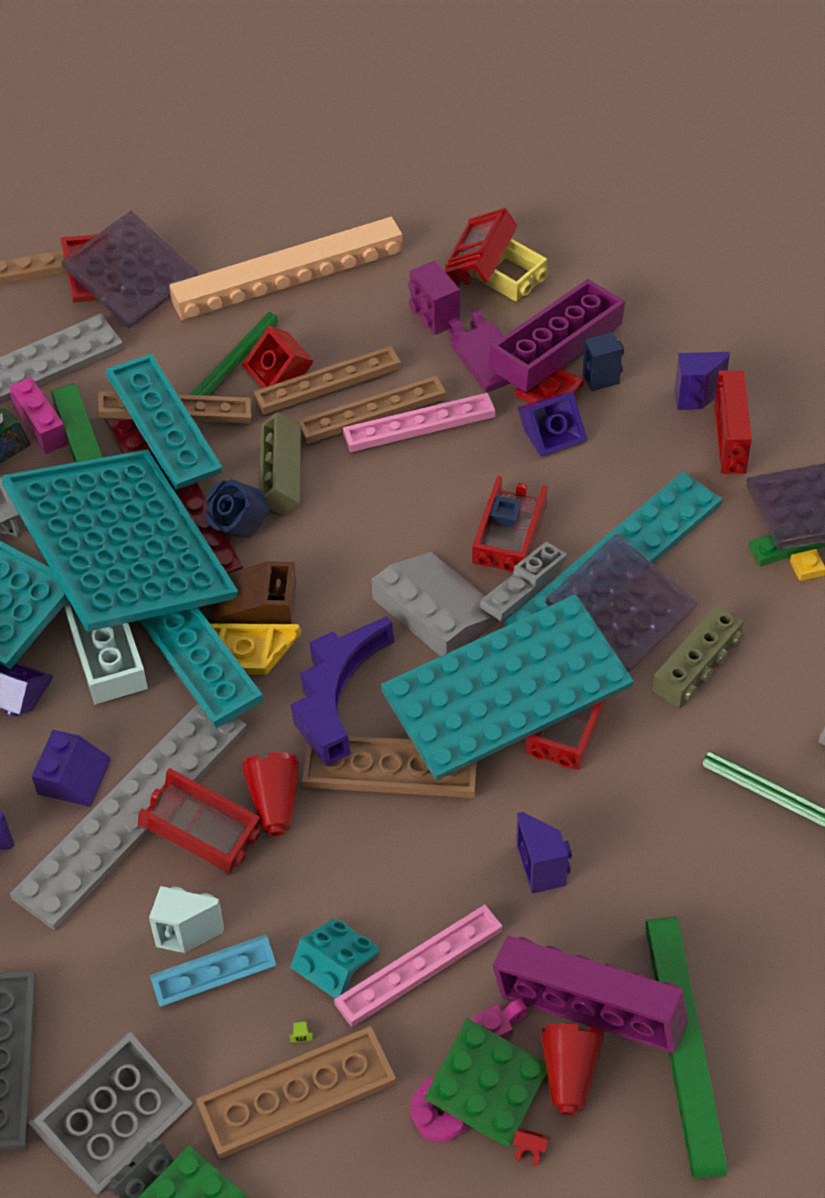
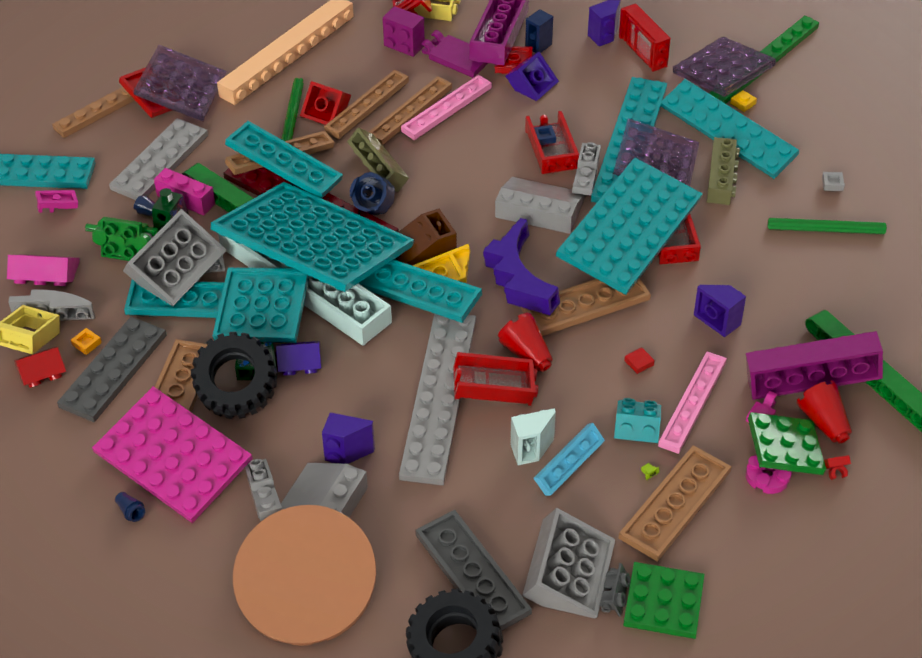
camera: 30 degrees left, 5 degrees down
(70, 769) = (380, 387): dark purple slope -> none
(398, 876) = (639, 360): none -> red tile
(756, 598) = (719, 120): none -> teal plate

